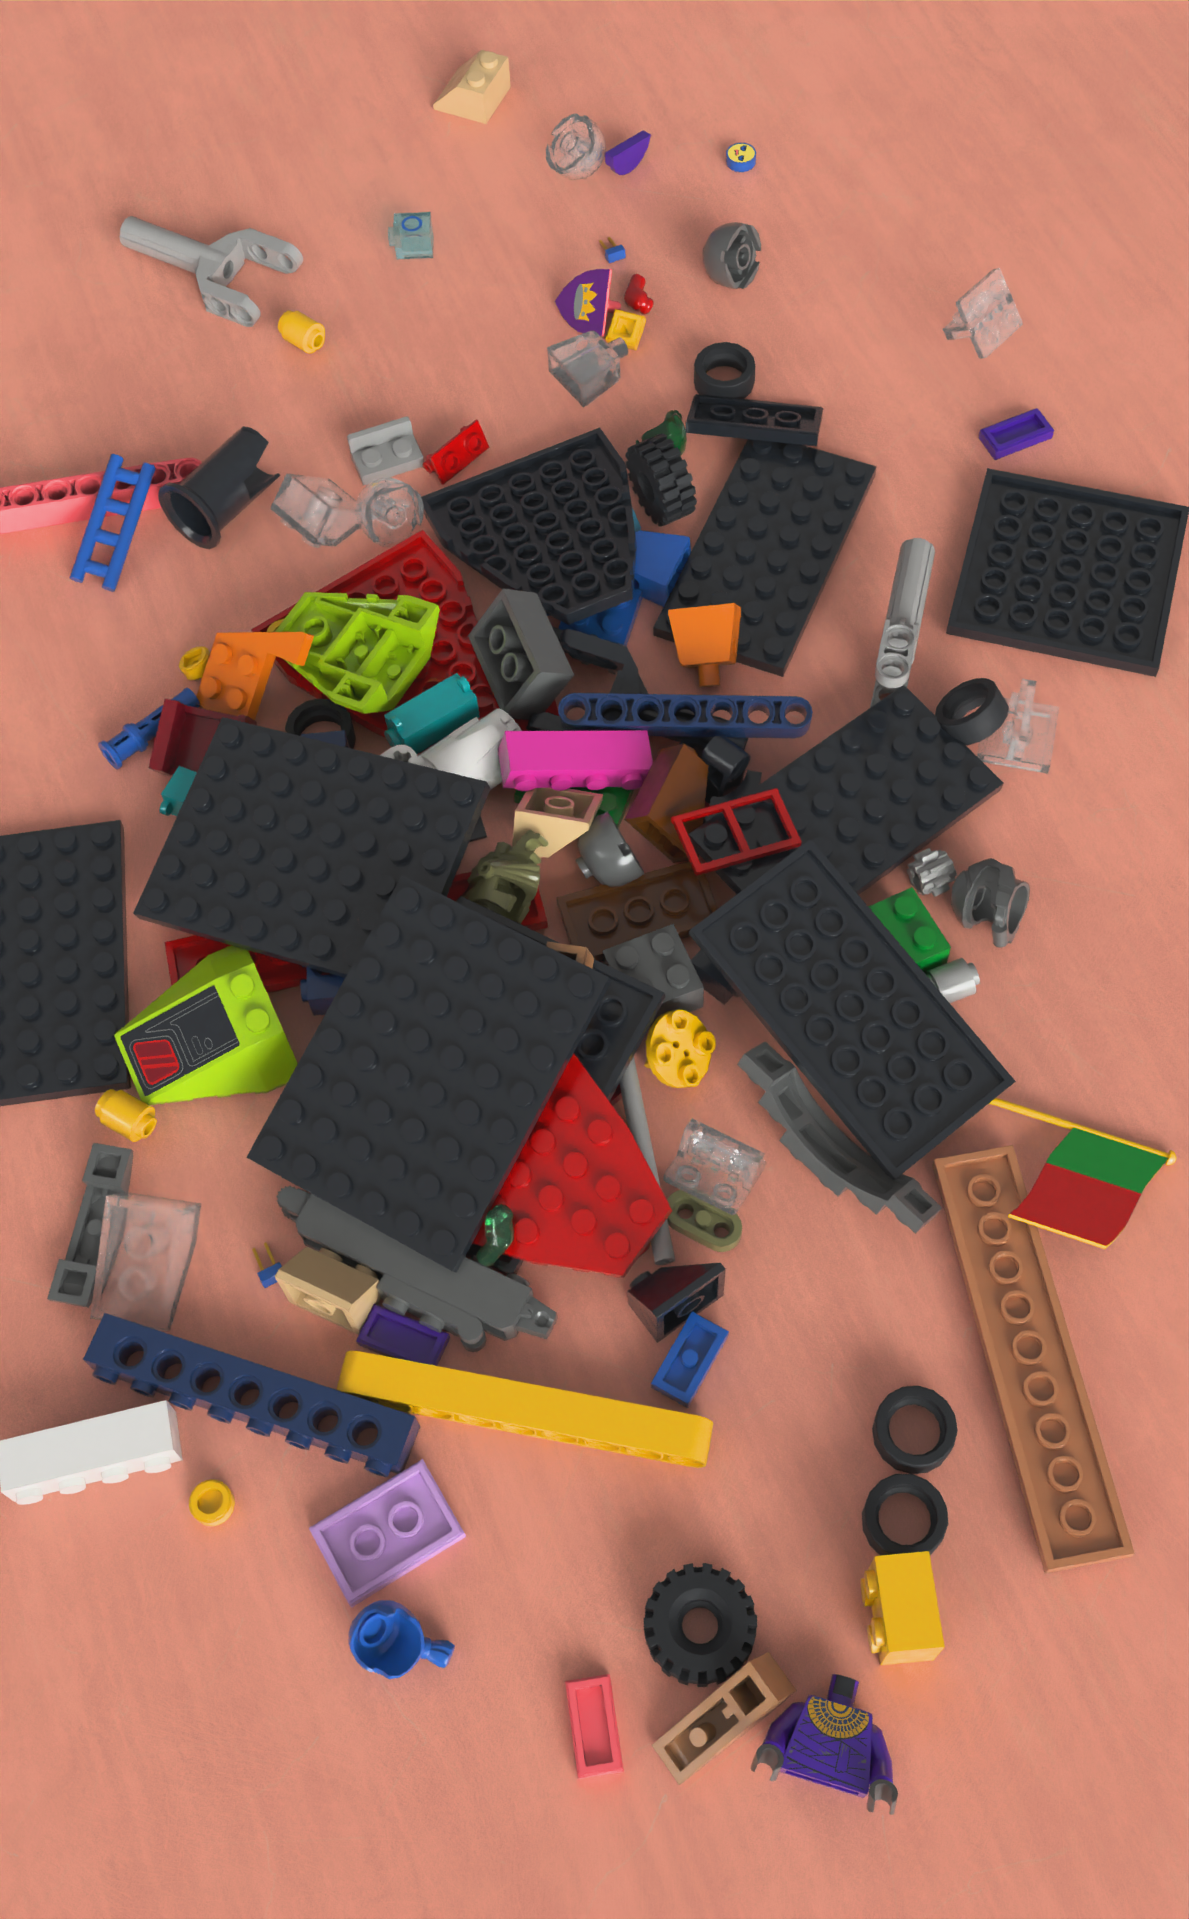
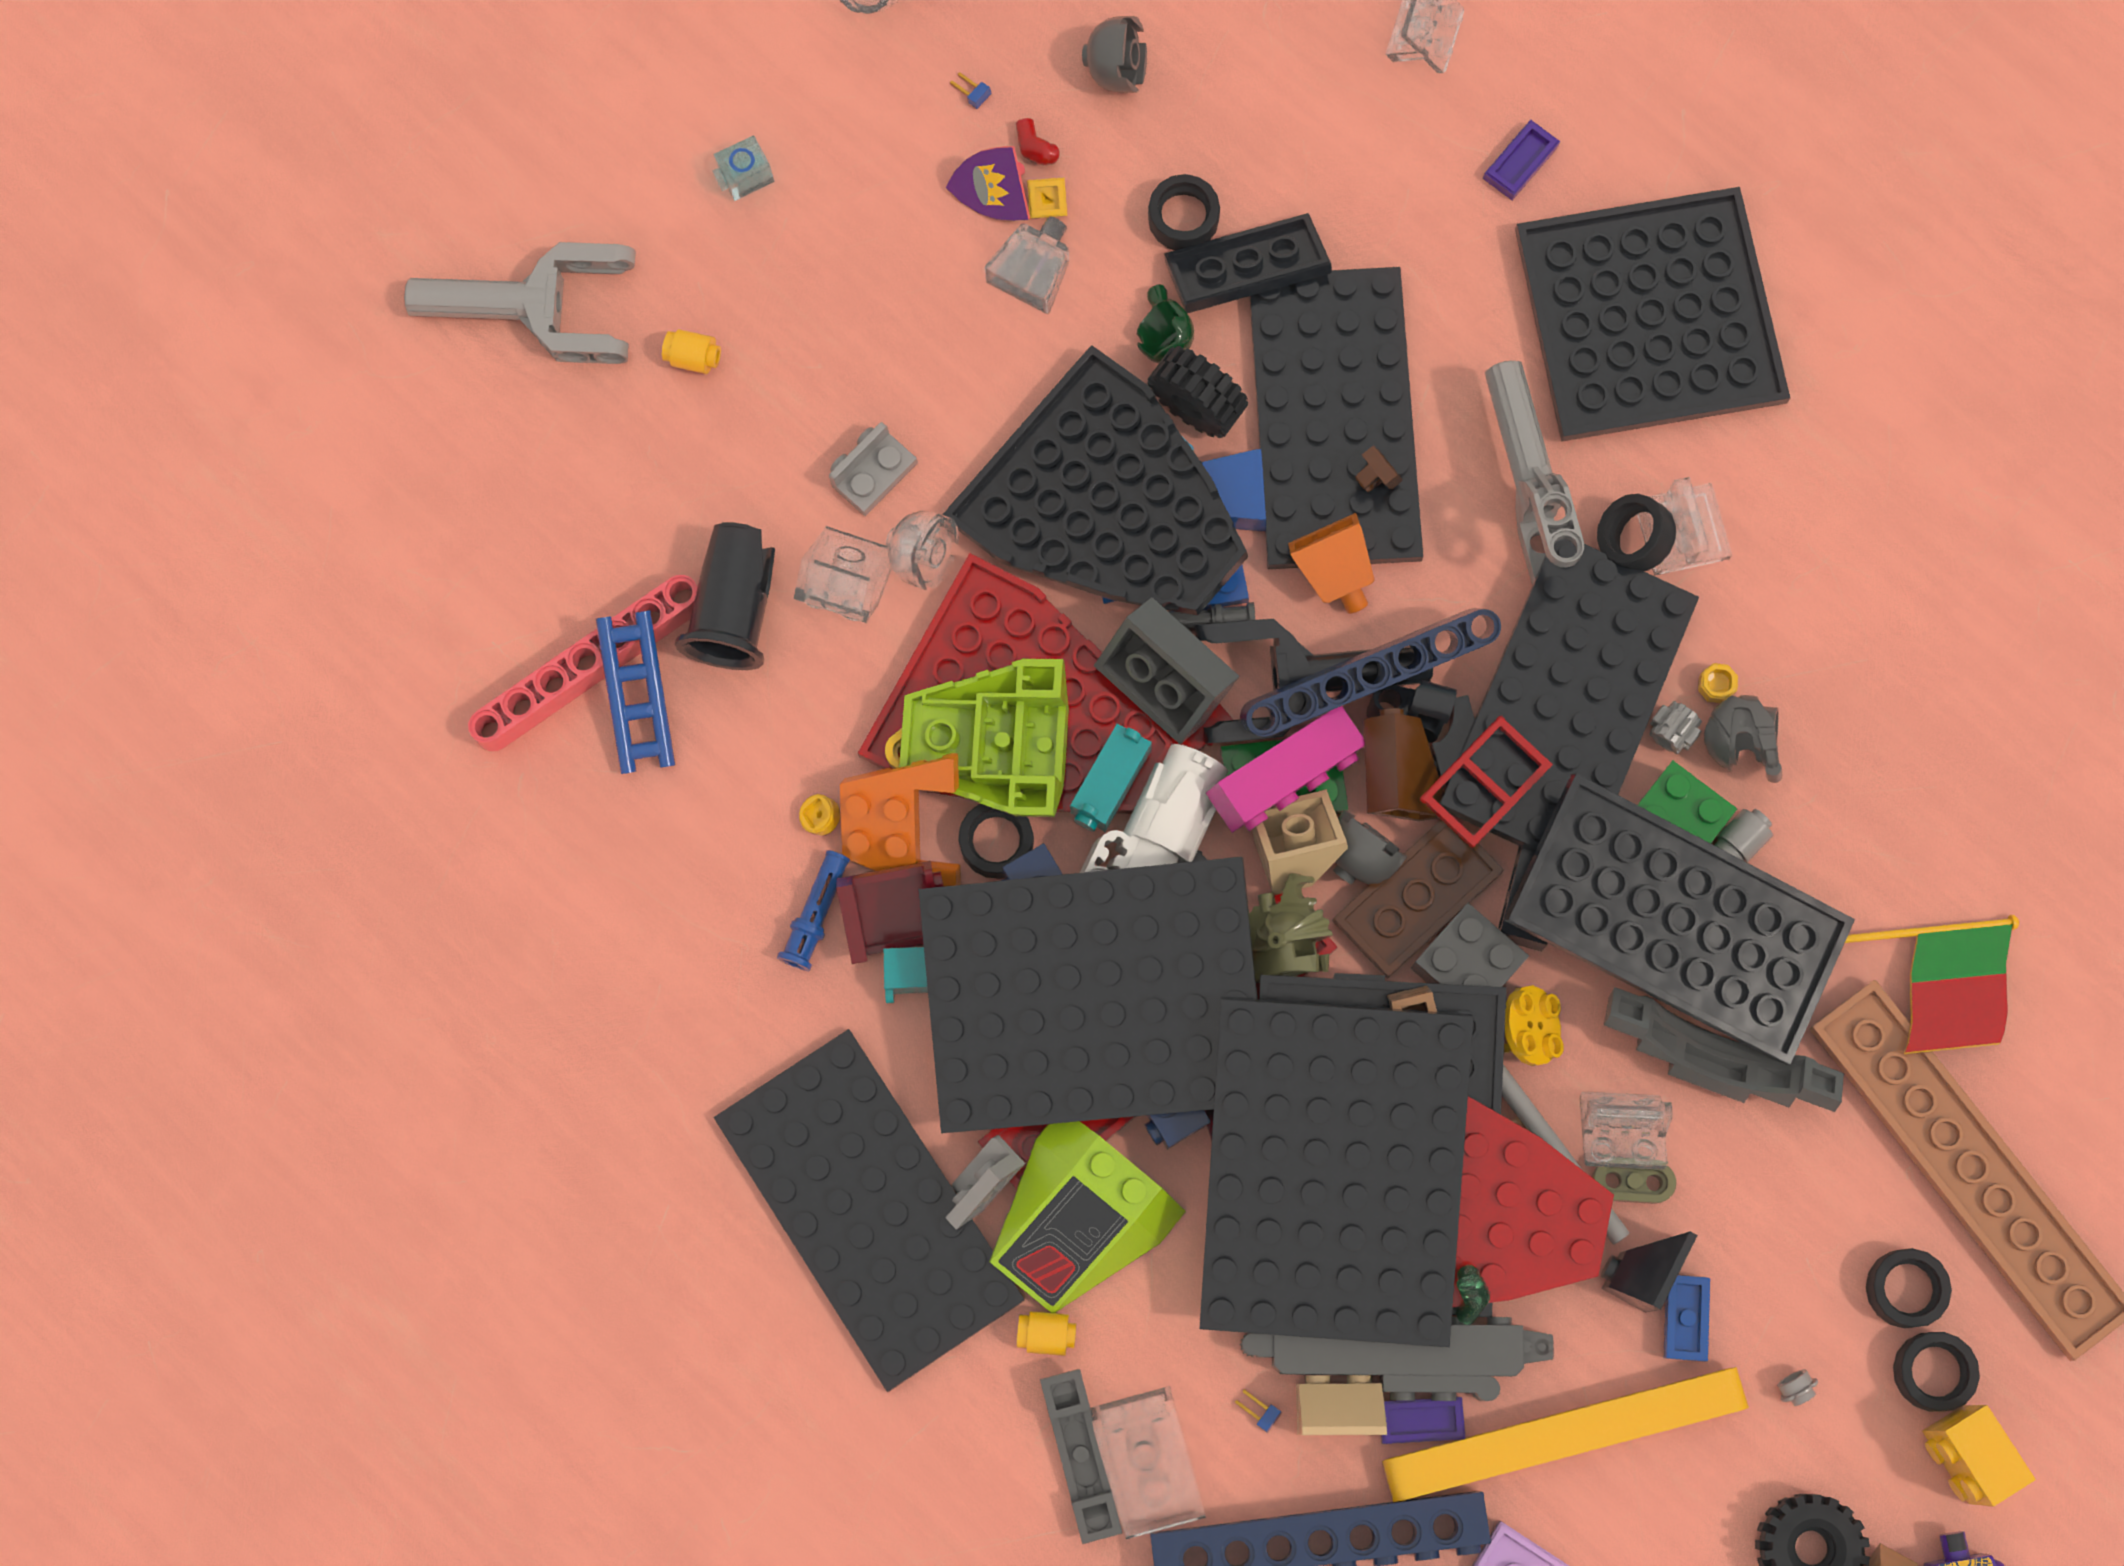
camera: 25 degrees left, 15 degrees up
(144, 971) = (983, 1180): none -> light grey bracket
(457, 452) = (954, 420): red hinge -> none
(762, 1470) = (1797, 1387): none -> light grey plate
(774, 586) = (1377, 471): none -> reddish brown tile
(987, 849) = (1717, 683): none -> yellow tile

